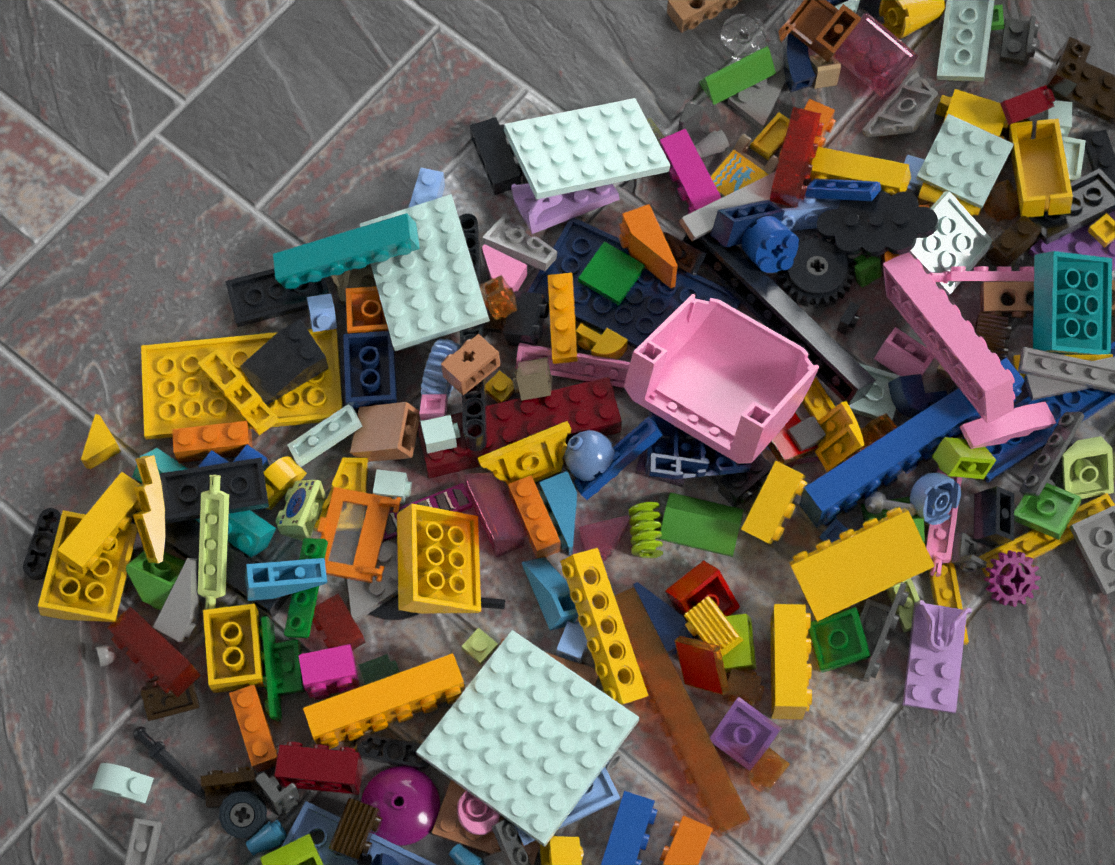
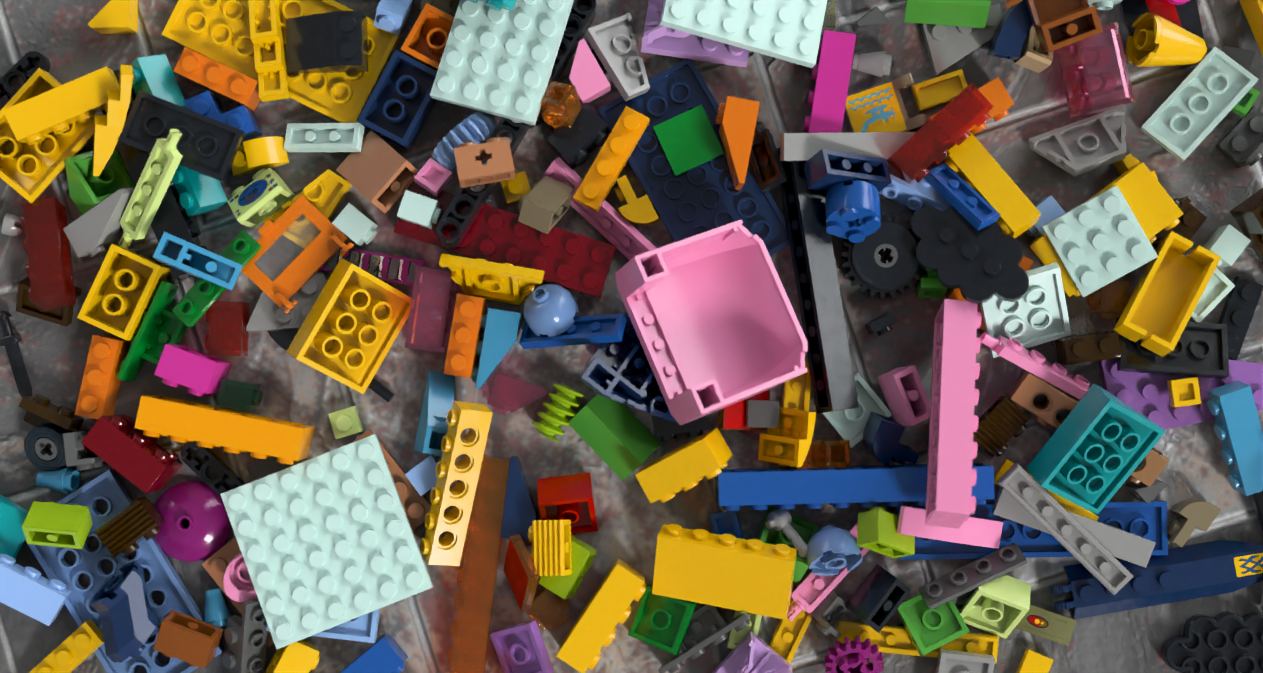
camera: 25 degrees right, 20 degrees up
(1028, 104) = (1202, 222): dark red slope -> none

